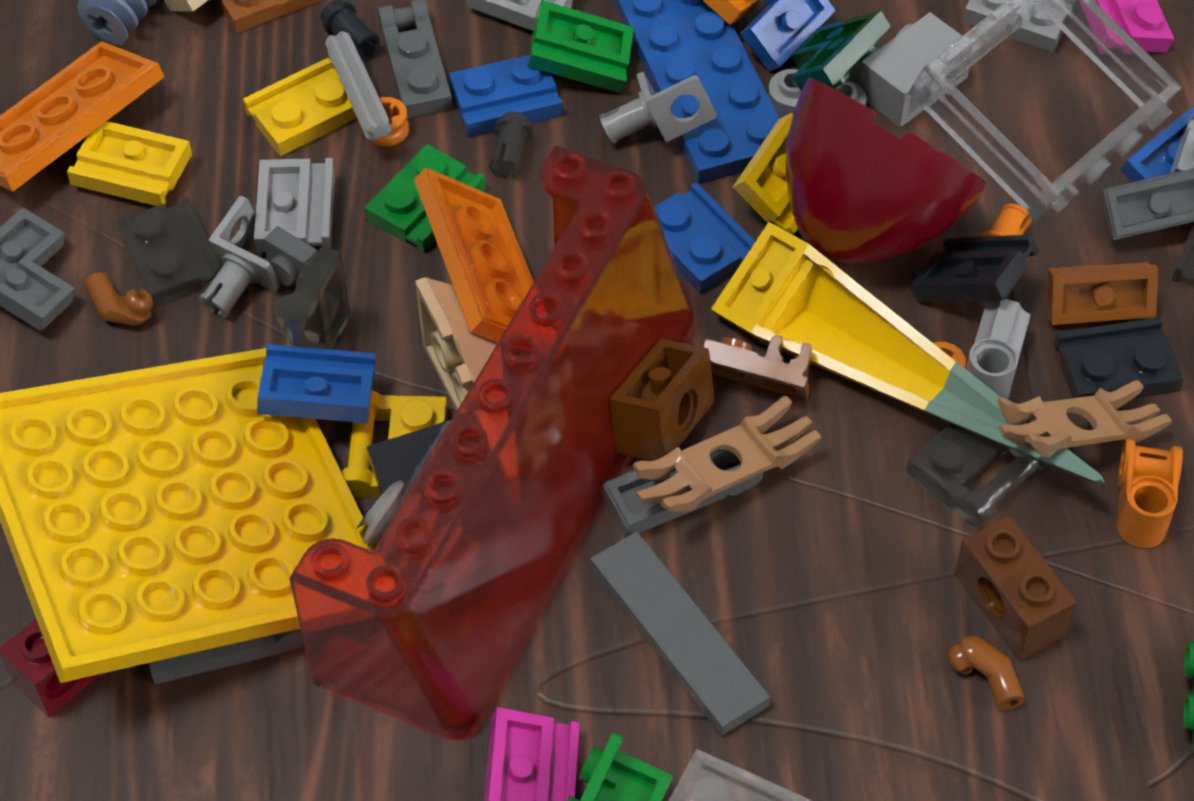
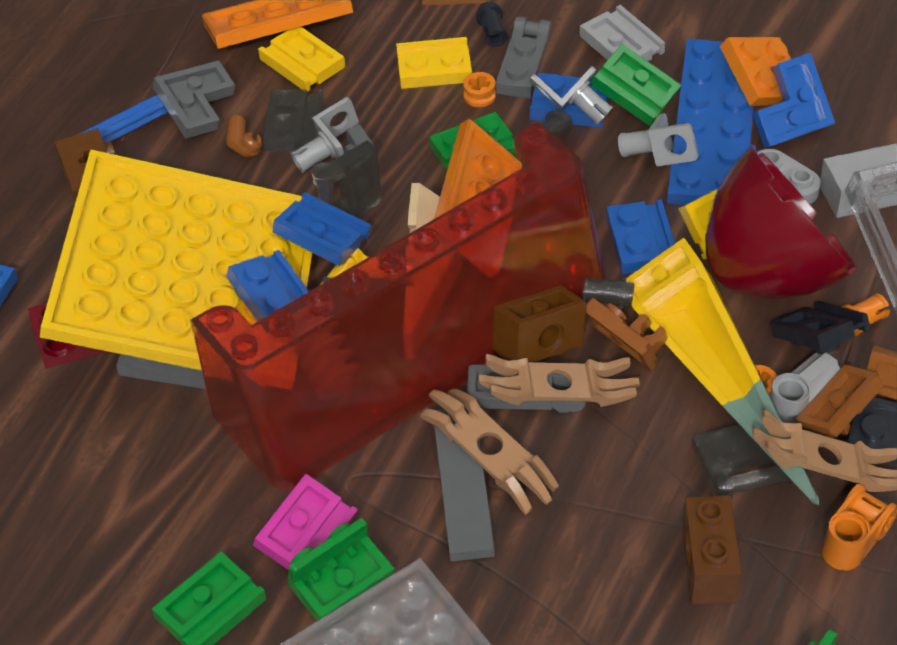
camera: 30 degrees right, 5 degrees down
(295, 198) = (389, 117): light grey plate -> none
(308, 491) = (266, 283): none -> blue plate
(358, 86) = (470, 59): light grey axle -> none
(526, 83) = (580, 94): none -> light grey bracket
(713, 324) = (609, 291): none -> clear smoke pin
(723, 577) = (504, 466): none -> medium nougat piece
(837, 47) = (818, 143): plate -> none
(995, 665) = (668, 599): dark orange arm -> none
(1049, 350) = (840, 401): none -> dark orange plate

